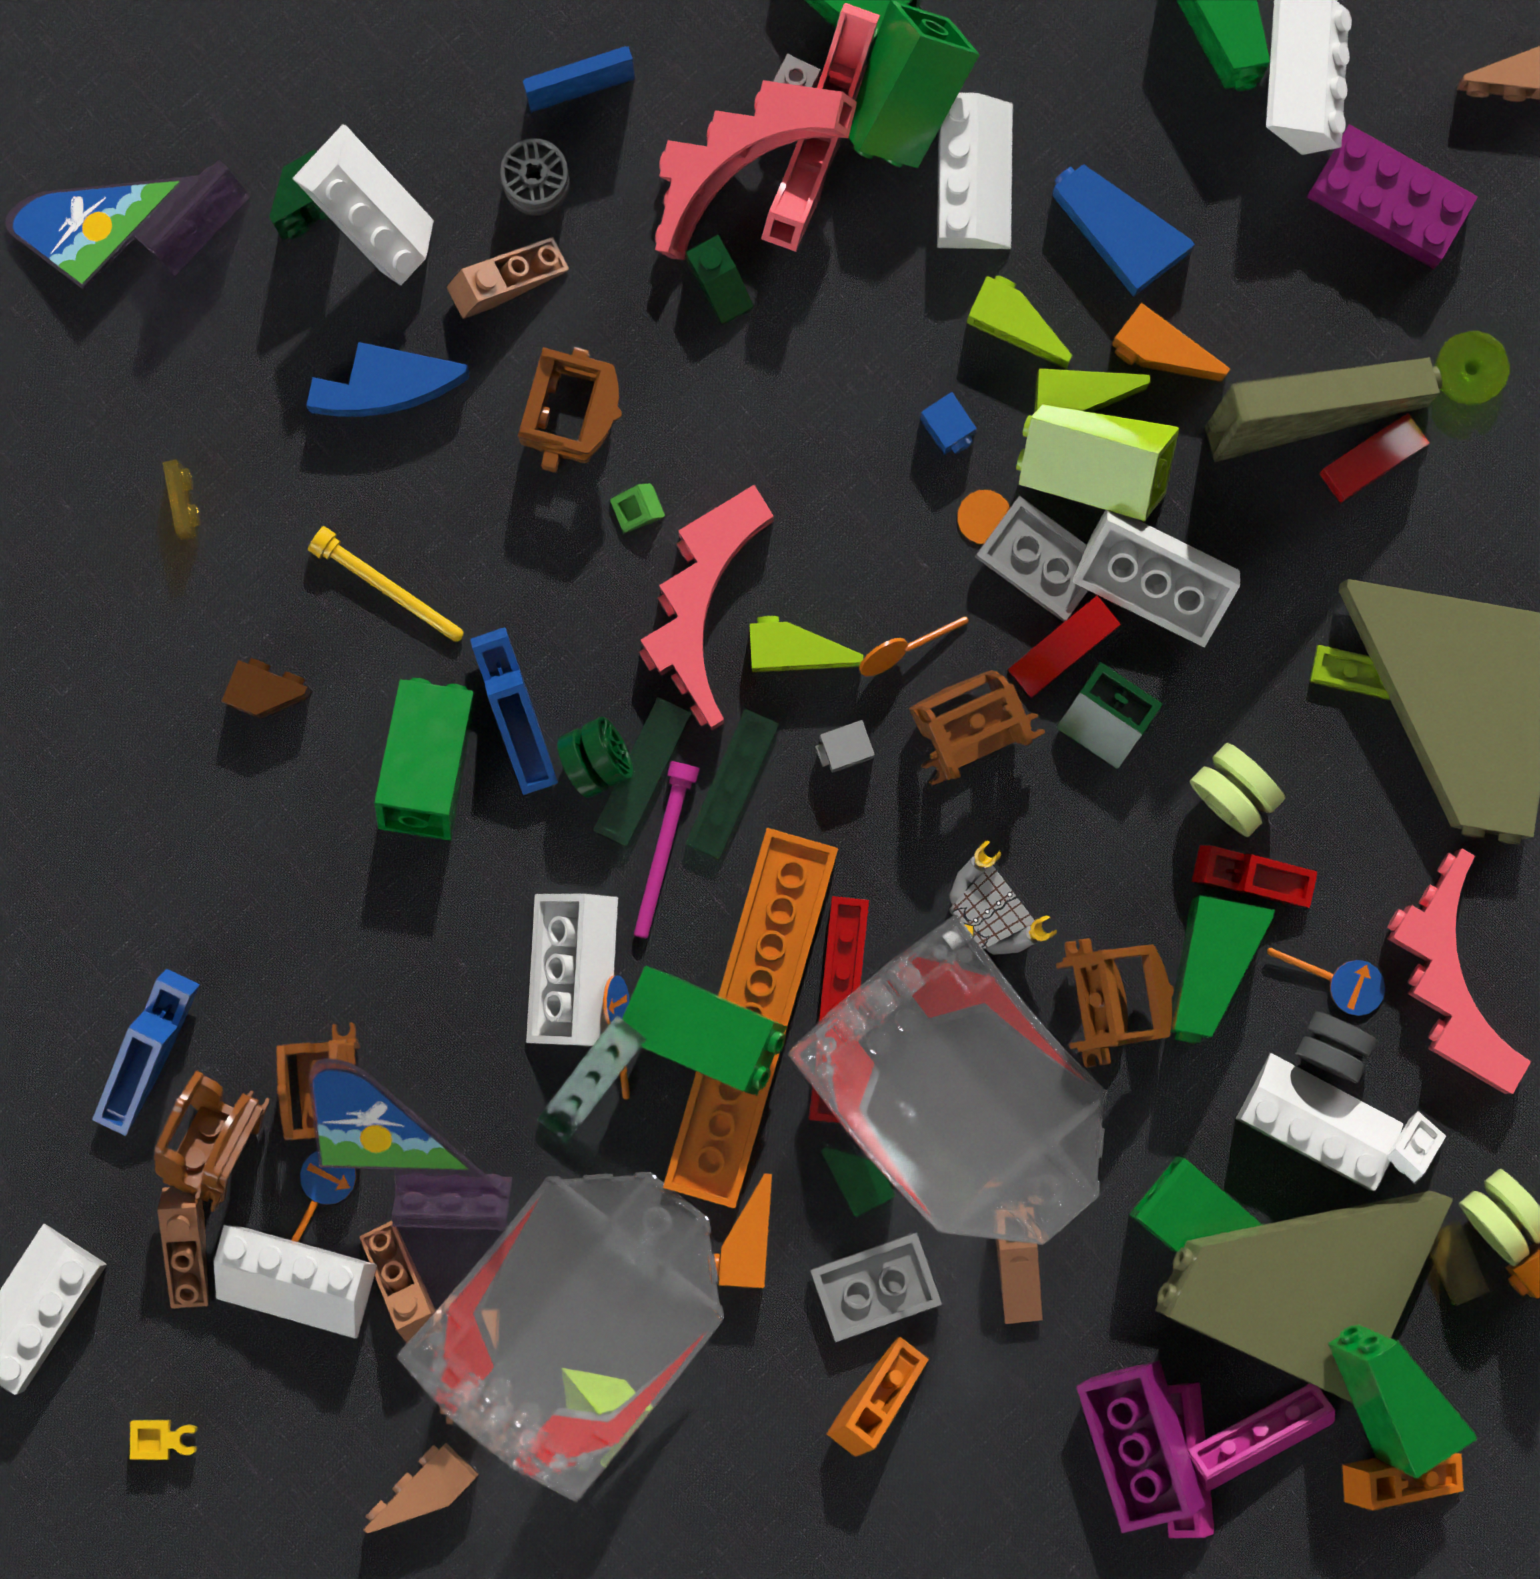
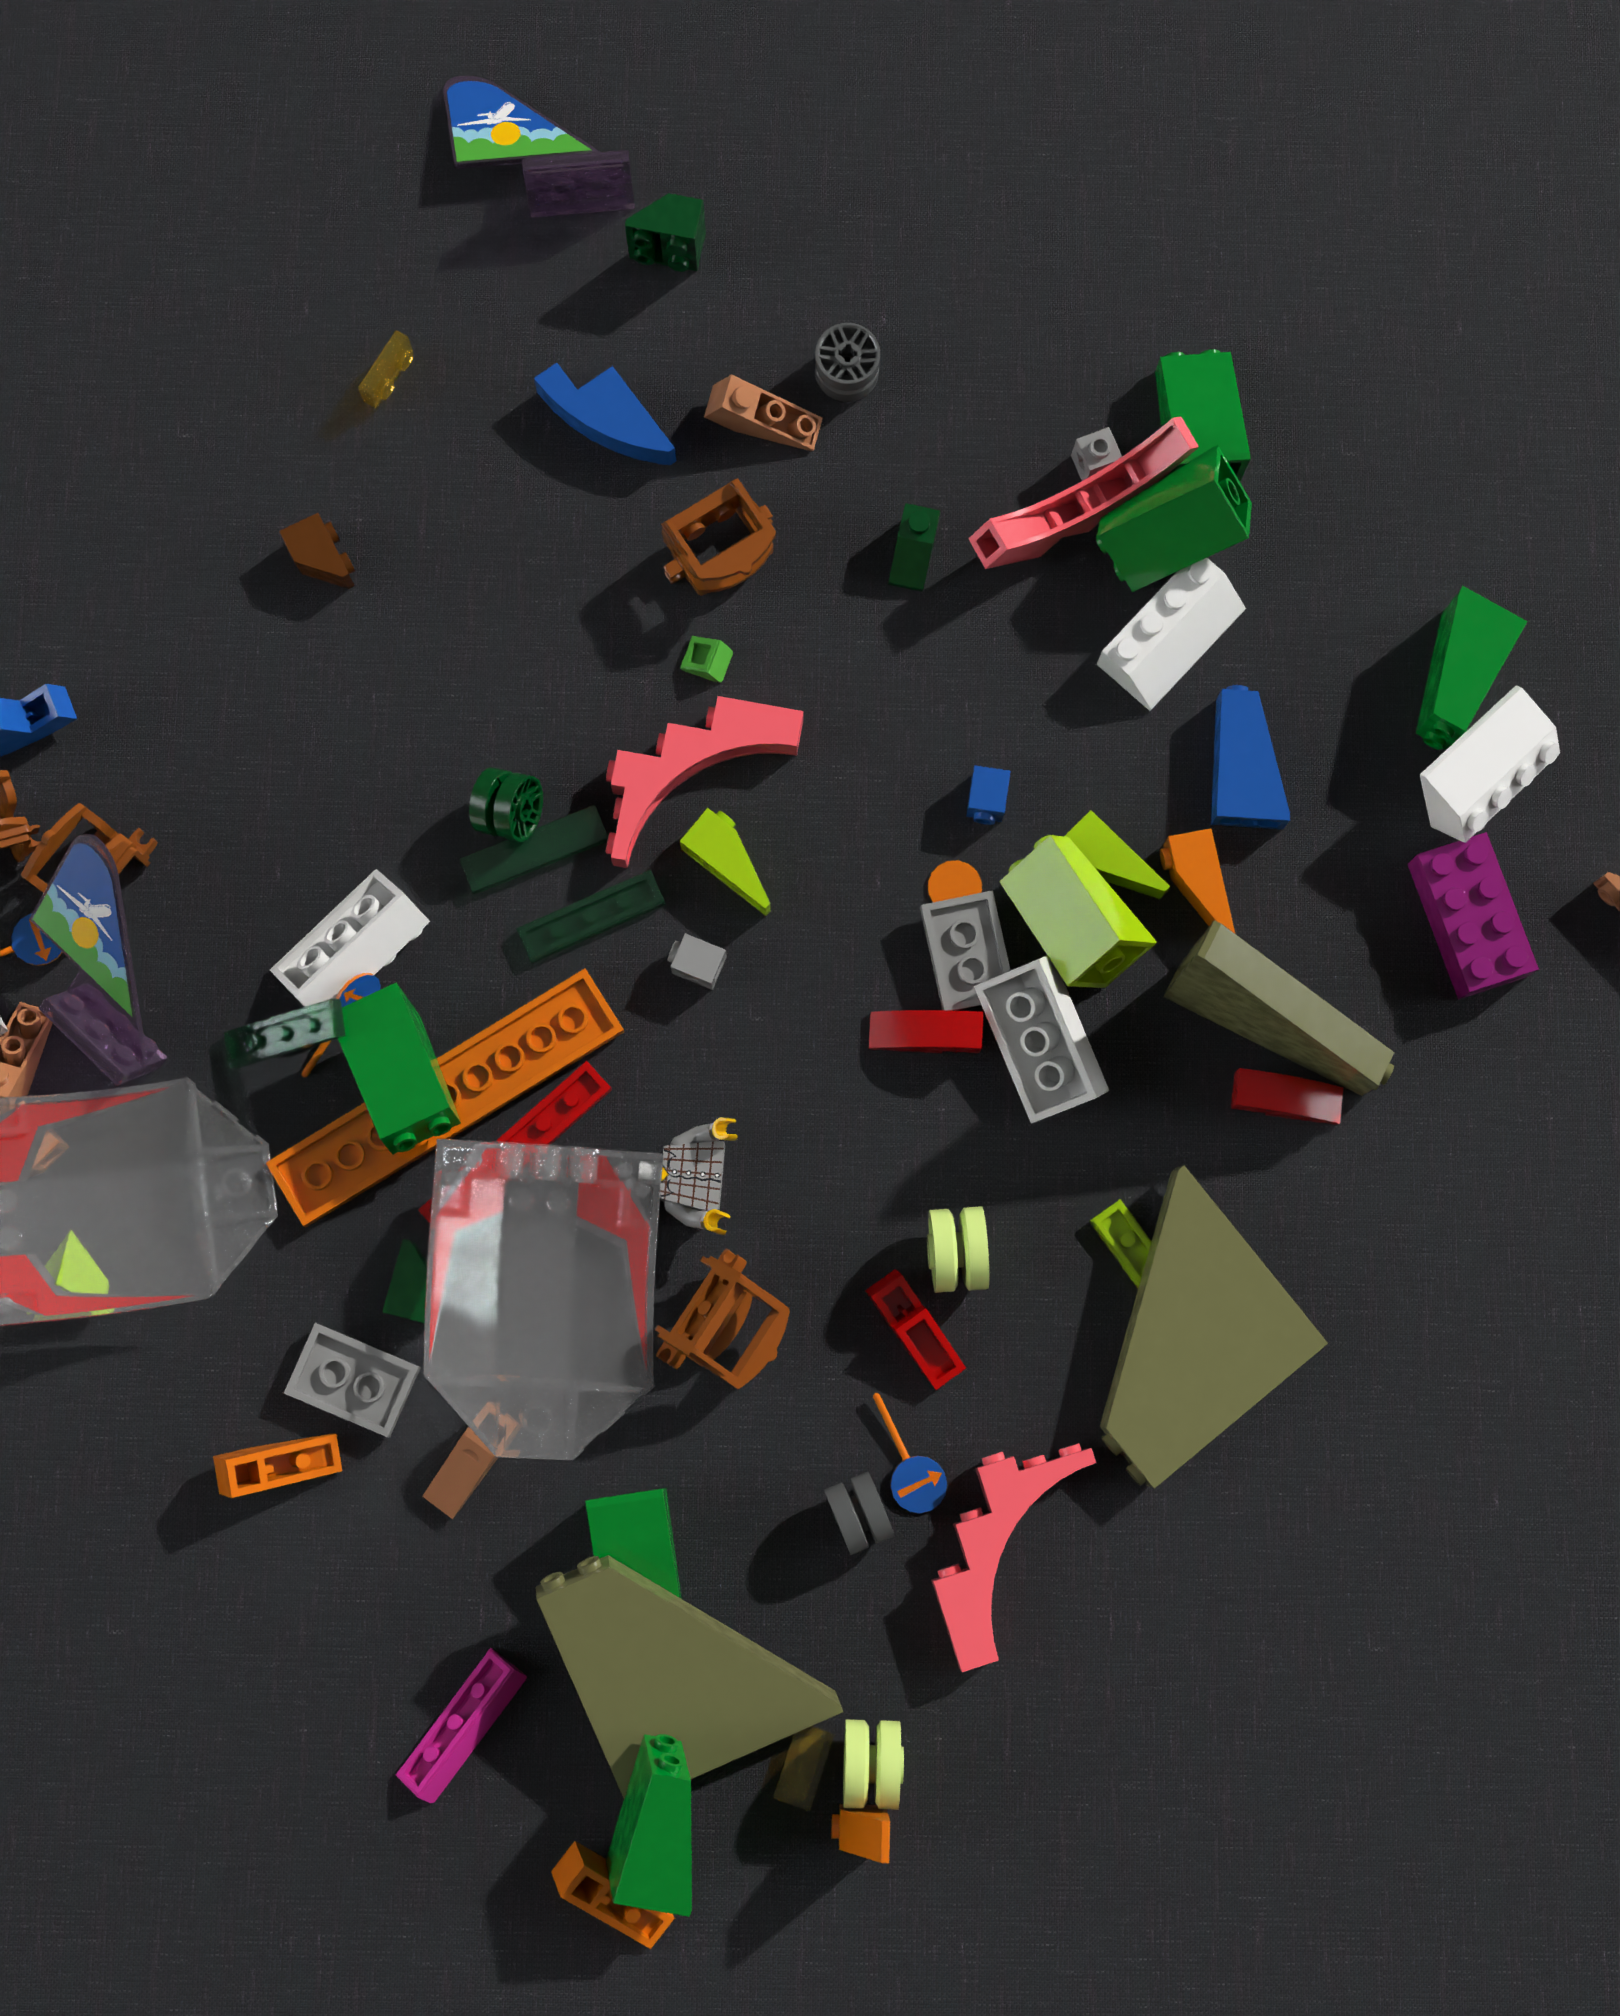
camera: 40 degrees right, 5 degrees down
(326, 545) = (459, 490): yellow piece -> none
(367, 204) = (706, 271): white slope -> none
(424, 759) = (384, 700): green slope -> none
(513, 711) = (480, 722): blue slope -> none
(579, 78) = (941, 318): blue tile -> none
(681, 779) = (557, 878): dark pink piece -> none
(698, 172) = (1013, 455): coral arch -> none
(745, 1248) = (285, 1262): orange slope -> none
(892, 651) = (793, 921): orange piece -> none
(973, 727) = (802, 1027): dark orange animal -> none
(1011, 317) = (1103, 754): lime slope -> none
(1109, 715) = (913, 1110): dark green slope -> none
(1140, 1446) = (433, 1683): magenta brick -> none
(1213, 959) = (827, 1360): green slope -> none
(1261, 1436) = (533, 1760): dark pink slope -> none
(1320, 1122) = (798, 1561): white slope -> none
(1416, 1146) = (851, 1645): white plate -> none
(1485, 354) = (1438, 1085): clear neon green plate -> none

